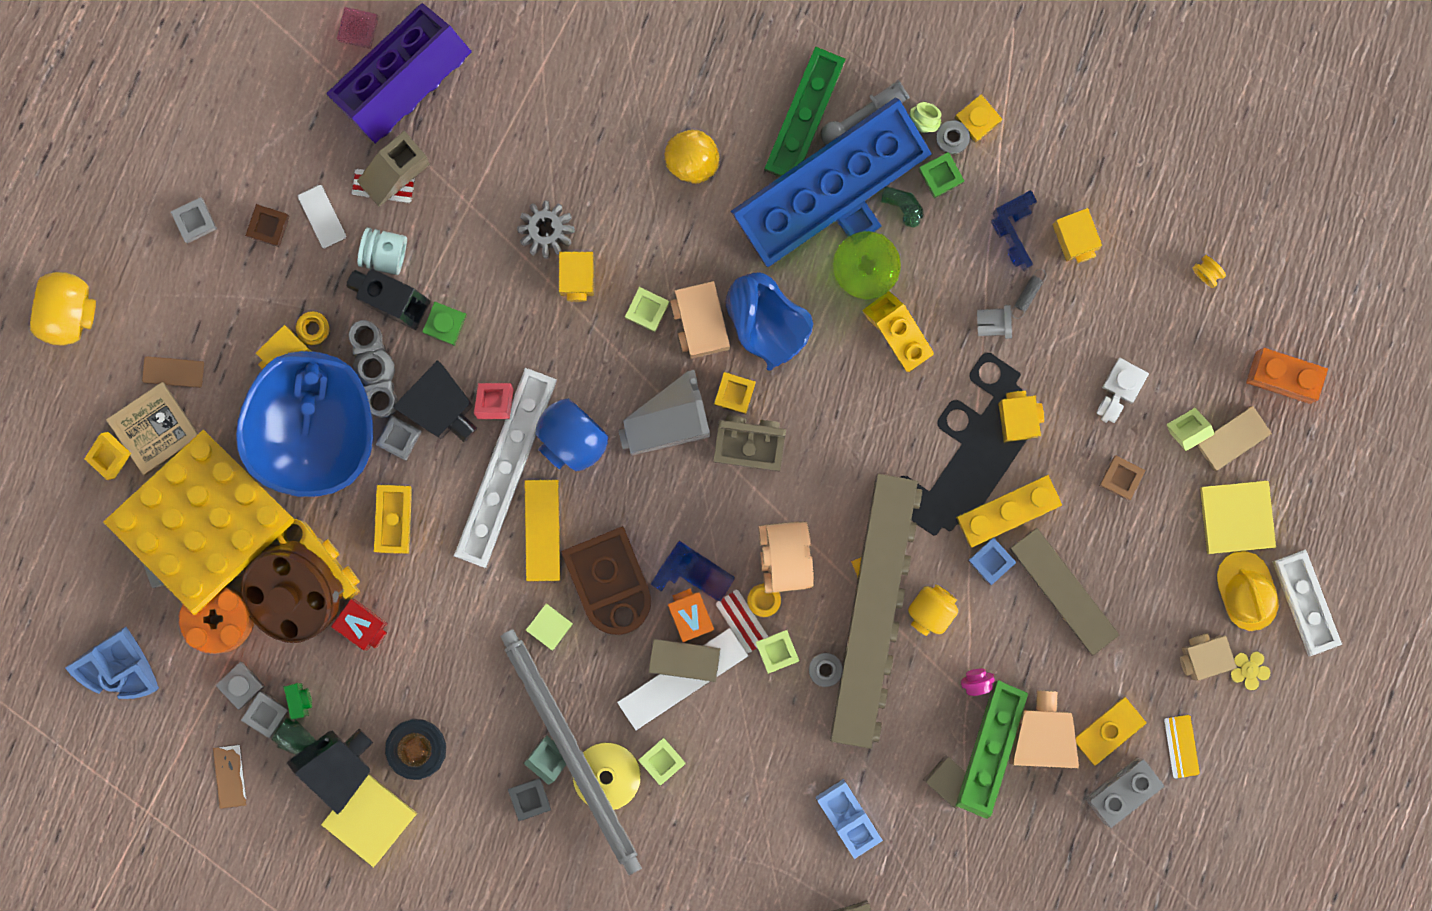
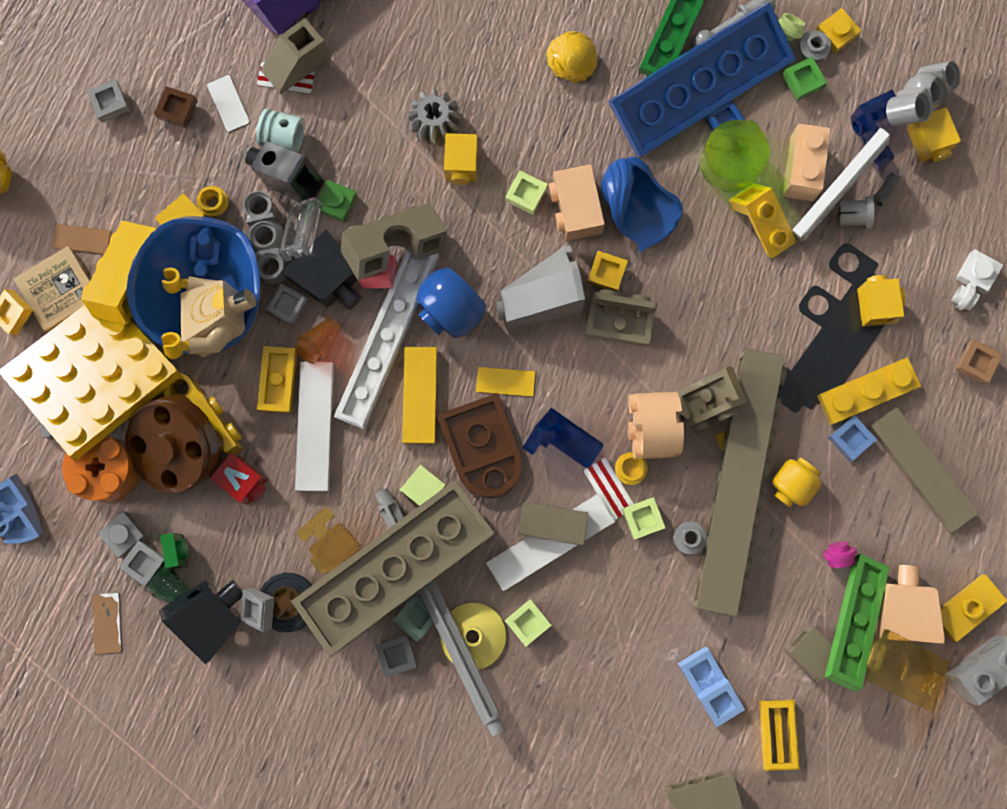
camera: 10 degrees right, 5 degrees down
(216, 430) = (106, 292): none -> yellow brick
(321, 457) = (209, 314): none -> tan torso
(370, 821) = (239, 671): light yellow tile -> none
(386, 758) = (257, 609): none -> light grey tile
(414, 359) = (300, 229): none -> clear tile
(432, 478) = (316, 342): none -> clear orange cone
(434, 566) = (314, 427): none -> white tile
(461, 690) = (333, 545): none -> clear yellow brick
(523, 711) = (392, 568): none -> dark tan plate
(531, 355) = (414, 229): none -> dark tan arch
(631, 512) = (505, 381): none -> yellow sticker
(690, 615) = (559, 480): orange brick -> none
(843, 527) = (711, 398): none -> dark tan bracket
(908, 204) = (771, 103): clear green arm -> none
(919, 894) = (764, 707): none -> yellow tile
(942, 270) = (806, 162): none -> light nougat brick
(976, 297) = (841, 185): none -> white tile
(1041, 795) = (906, 670): none -> clear yellow piece
(1063, 194) = (923, 93): none -> light grey piece

